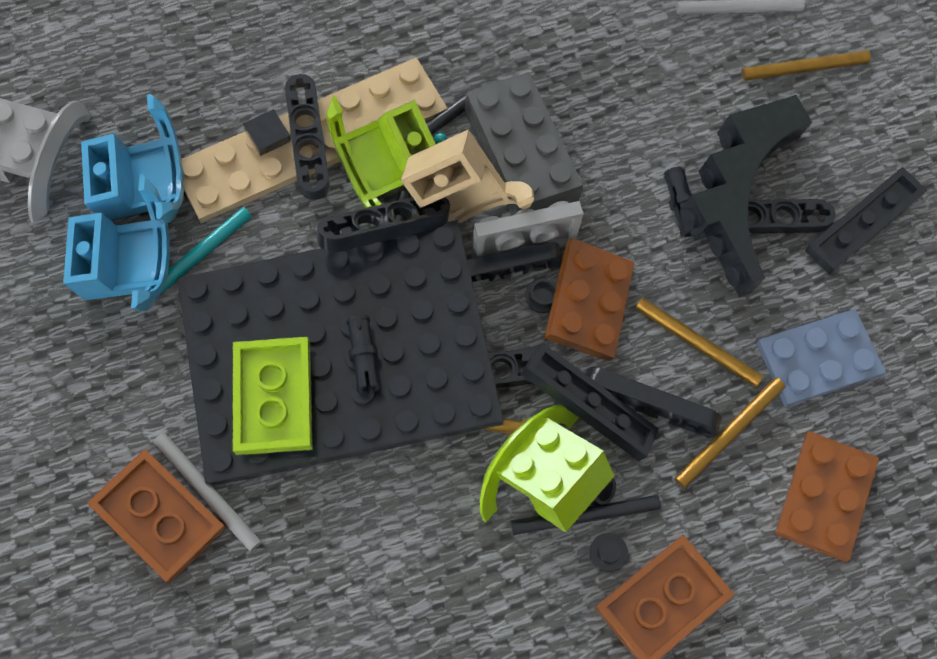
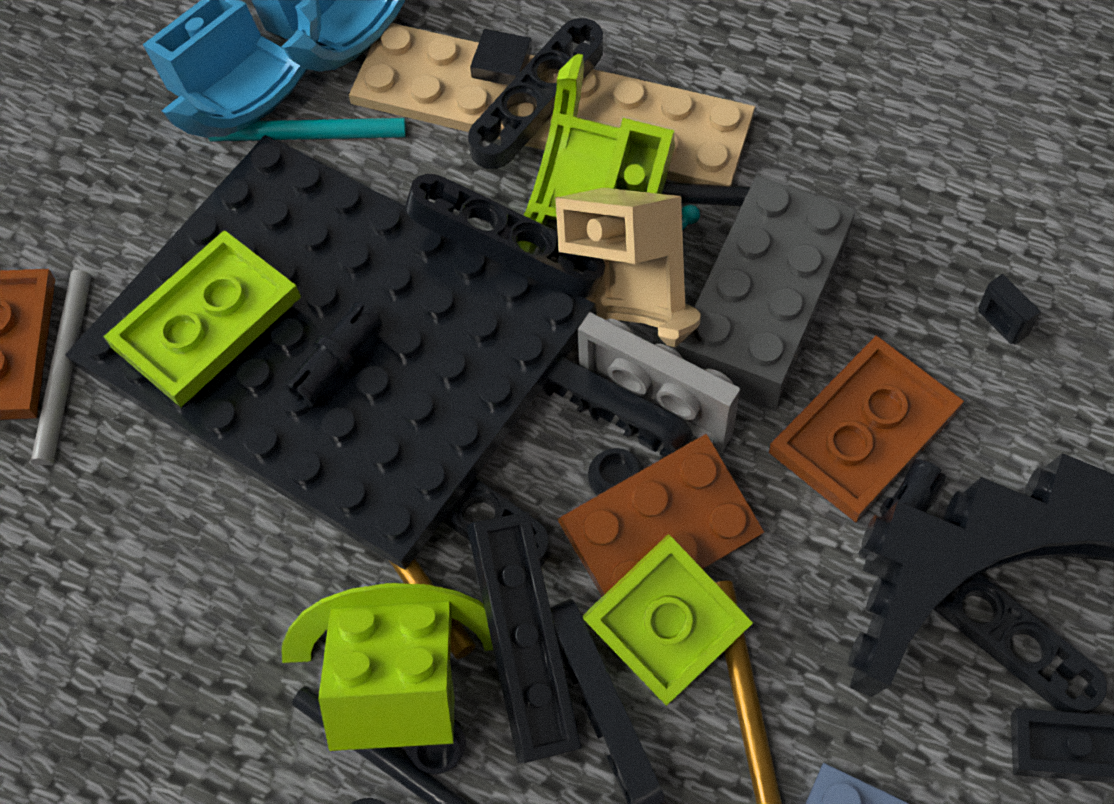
camera: 55 degrees right, 5 degrees down
(627, 175) = (865, 428): none -> dark orange plate
(633, 67) = (1008, 310): none -> black tile
(640, 337) = (667, 619): none -> lime plate

